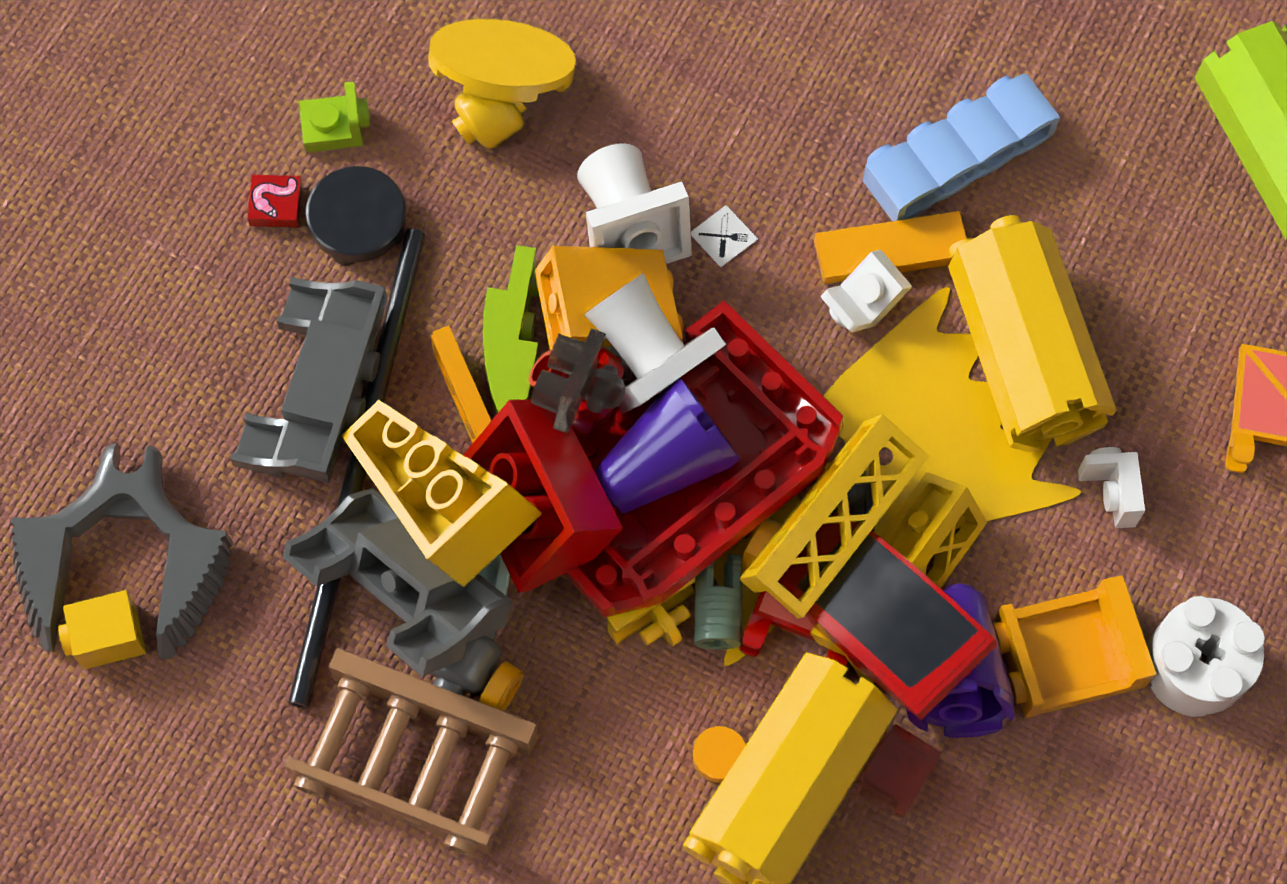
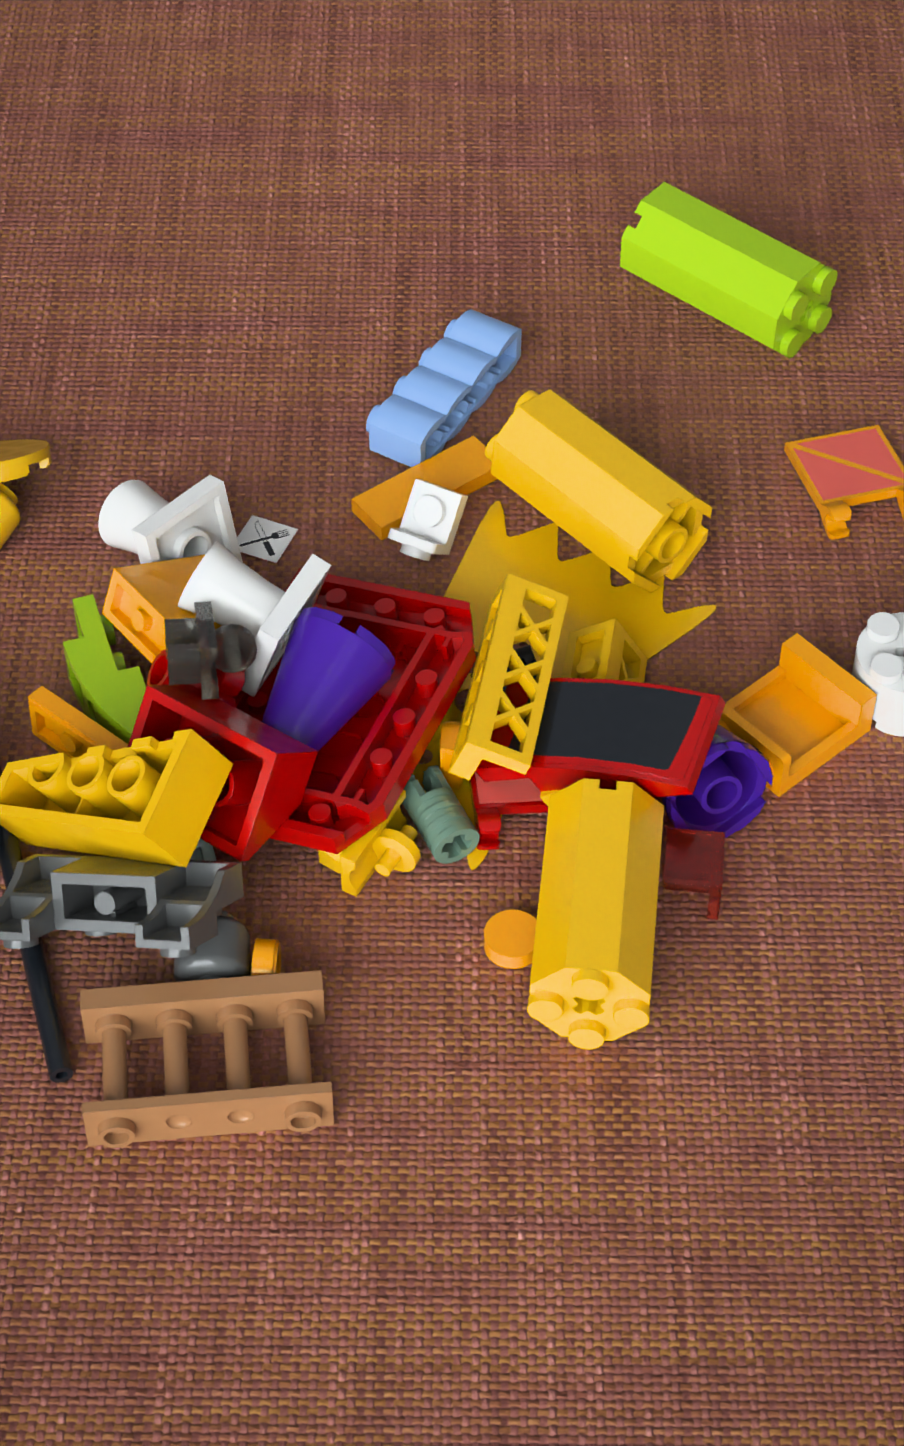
camera: 25 degrees left, 20 degrees down
(1124, 489) = (749, 574): white bracket -> none

